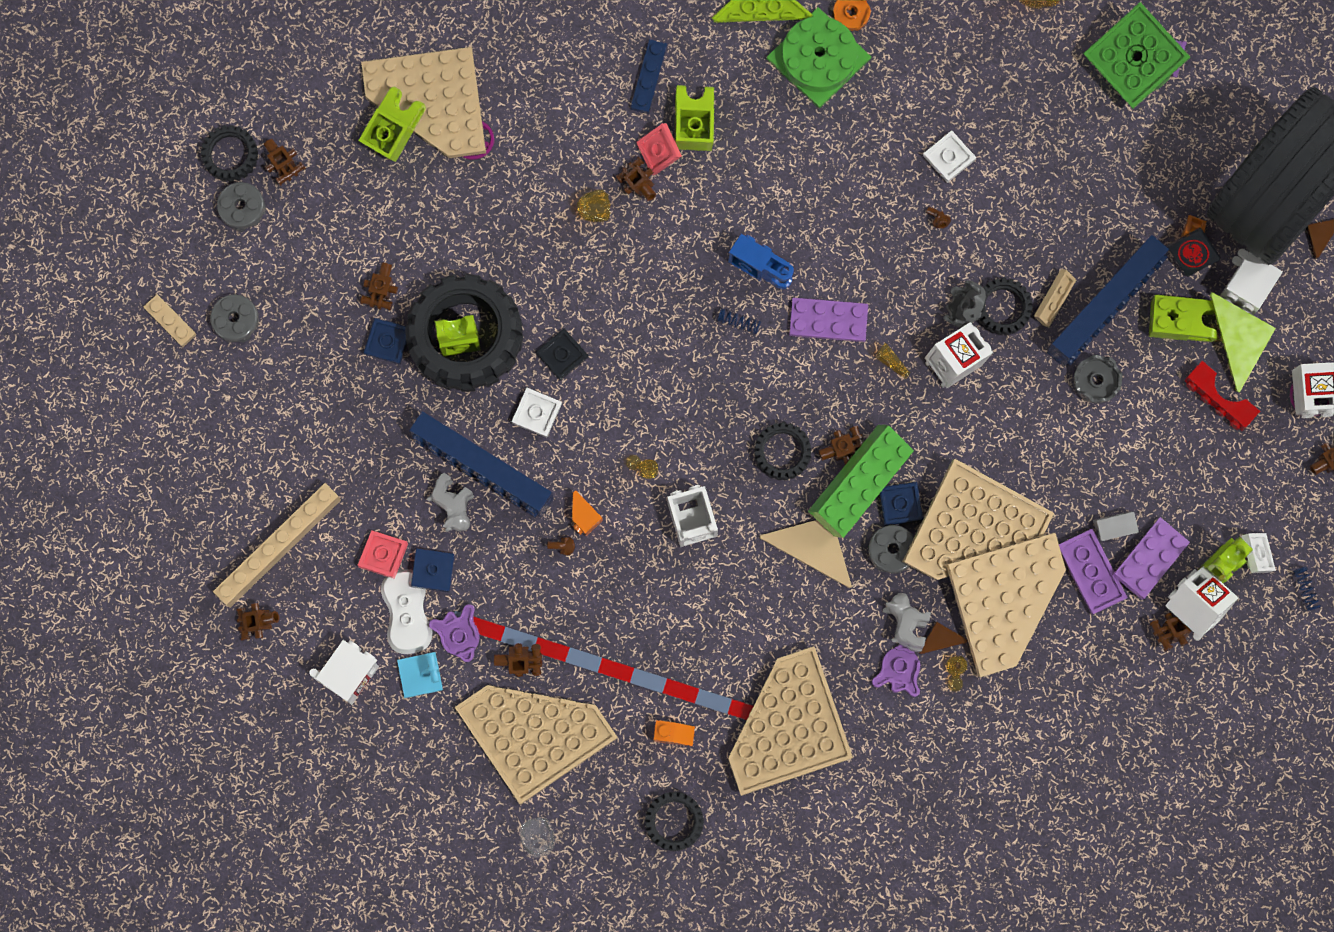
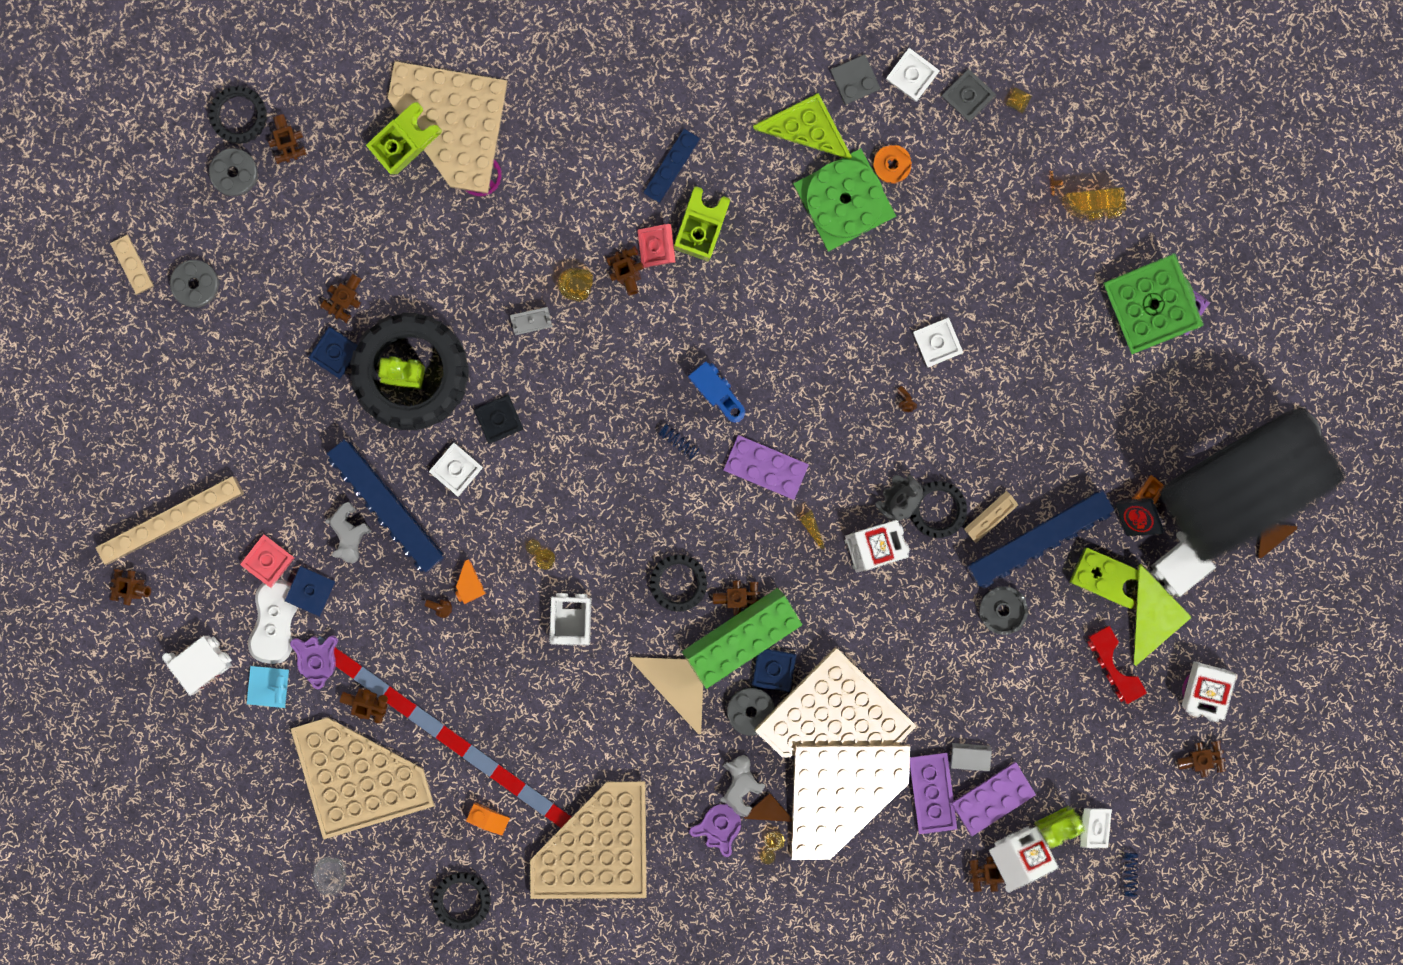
camera: 25 degrees right, 10 degrees up
(563, 254) = (531, 321): none -> light grey hinge

